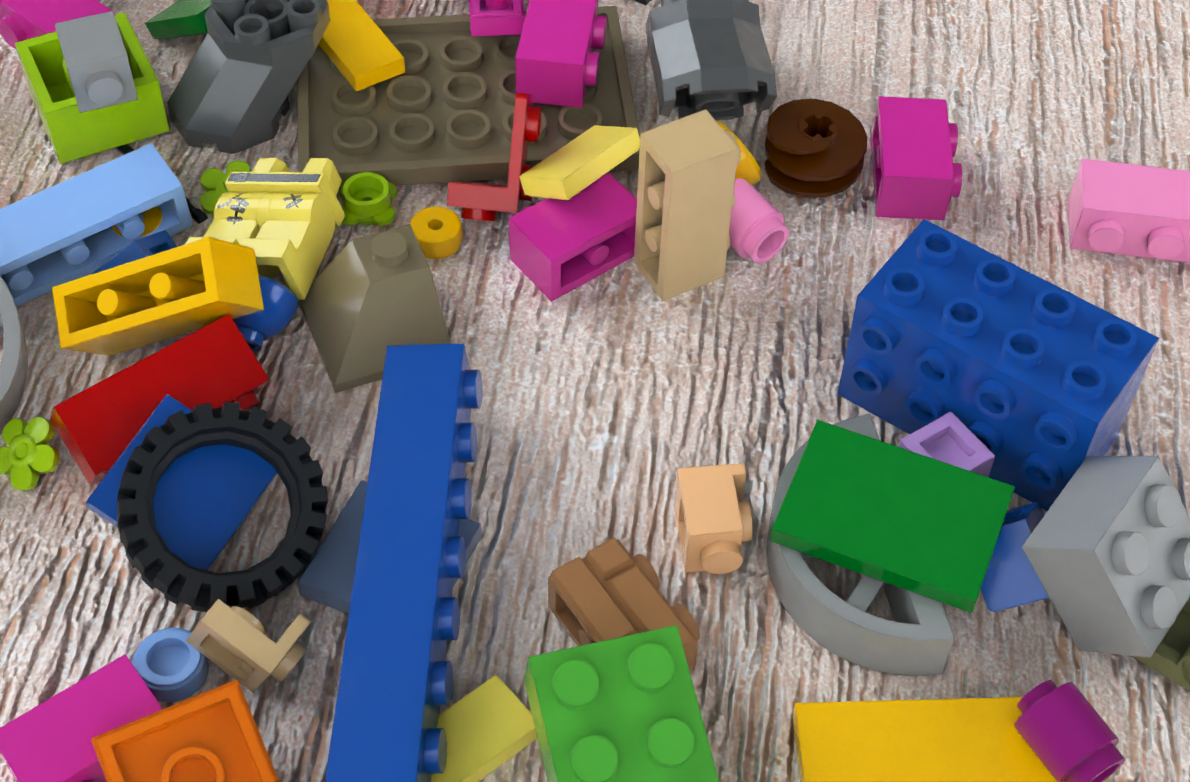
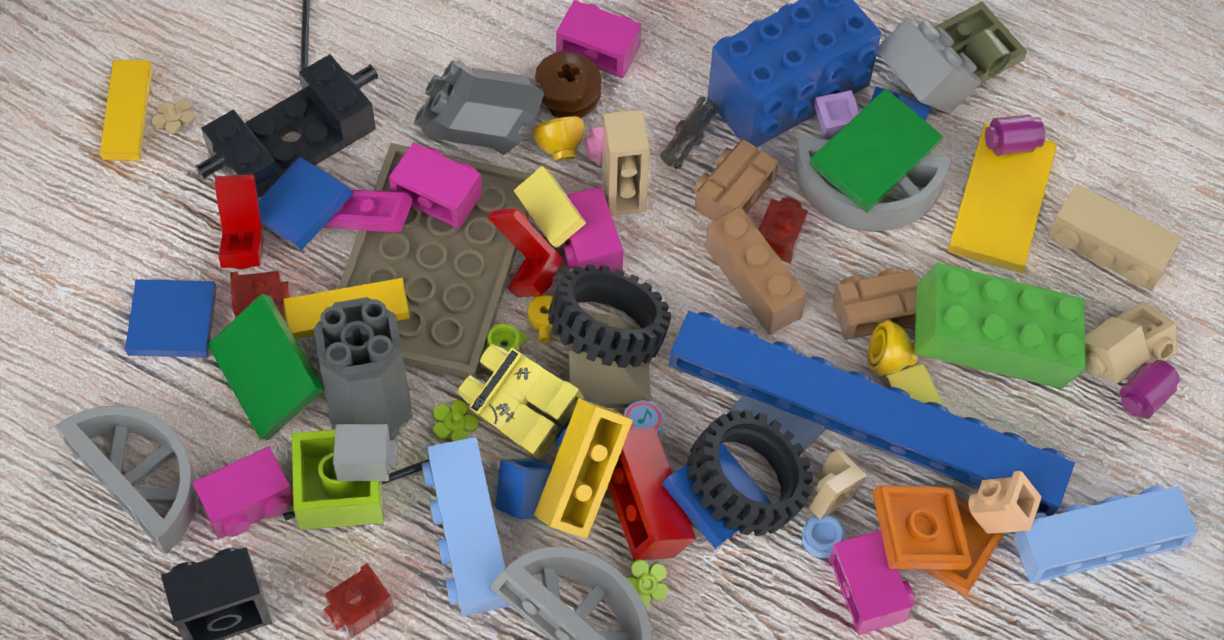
camera: 70 degrees left, 10 degrees up
(299, 383) = (645, 415): none -> light blue tile
(457, 224) = (599, 338): none -> black tyre
(510, 652) = (890, 349): none -> yellow brick
(602, 437) = (755, 270): none -> medium nougat brick
(700, 442) = (783, 226): none -> clear red brick
(712, 517) = (827, 240): light nougat brick -> none
(750, 376) = (737, 182): none -> medium nougat brick
(805, 300) = (689, 132): none -> clear smoke pin

